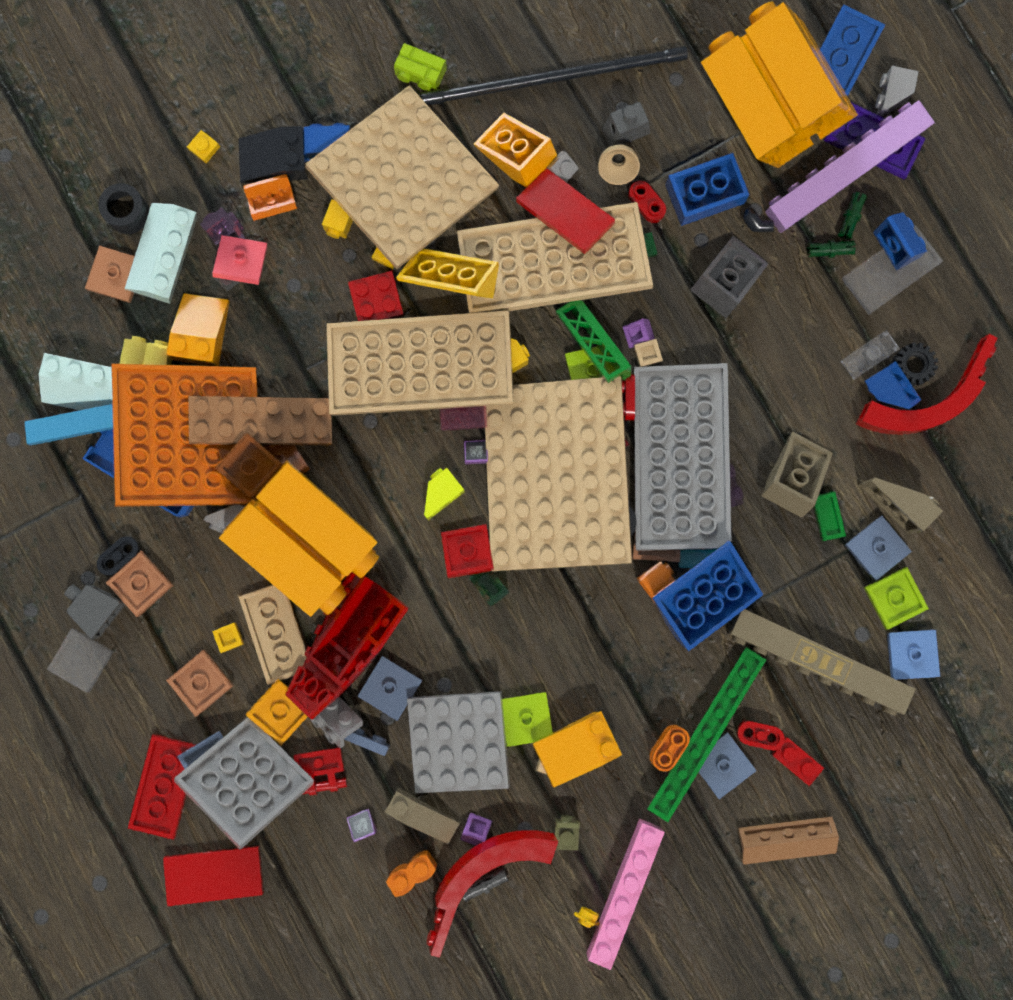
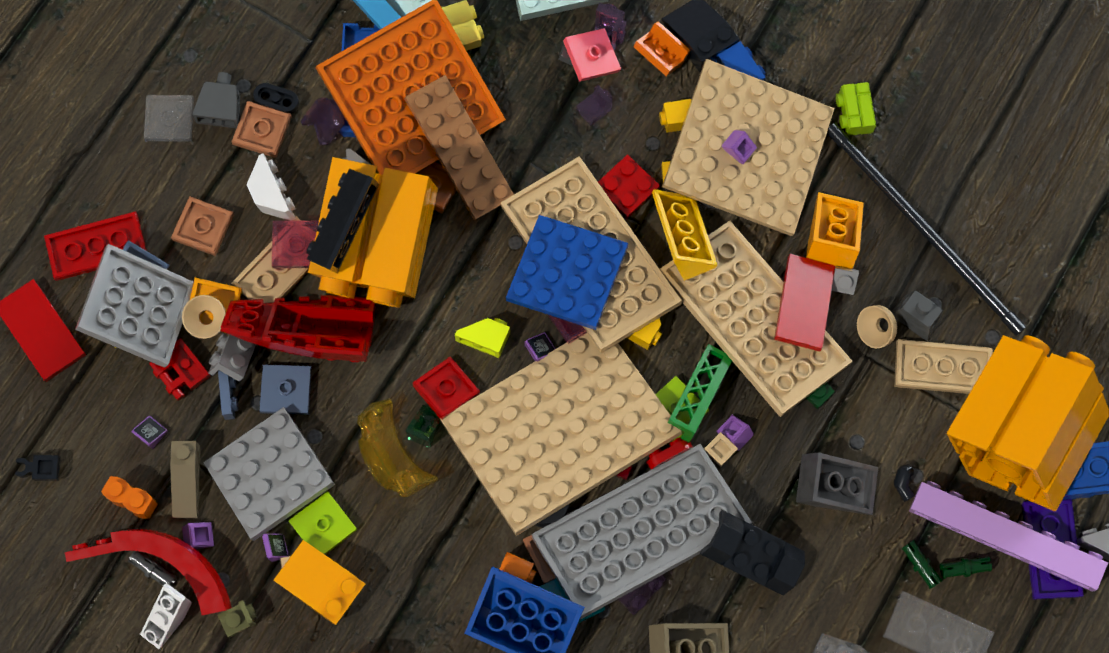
camera: 60 degrees right, 10 degrees down
(166, 522) = (326, 119): none -> clear purple bracket
(198, 330) = (510, 55): light orange slope -> none
(201, 608) = (269, 190): none -> white slope
(228, 637) = (255, 227): yellow plate -> none
(248, 465) = (414, 154): dark orange plate -> none
(265, 610) = (291, 242): none -> clear pink plate
(285, 562) = (343, 220): none -> black slope
(287, 283) = (595, 105): none -> clear purple bracket
(287, 738) = (193, 310): none -> tan piece
(341, 936) = (42, 468): none -> black plate
(399, 182) = (739, 146): none -> medium lavender slope
(427, 392) = (567, 272): none -> blue plate
(497, 633) = (385, 454): none -> clear yellow windscreen
(523, 769) = (275, 546): none -> slope
(532, 894) = (165, 616): none -> white slope
(646, 201) = (862, 372): red plate -> none
(680, 132) = (939, 366): none -> tan tile
(707, 189) = (903, 417): blue brick -> none
(754, 375) = (755, 554): none -> black piece
(900, 240) = (967, 621): blue slope -> none

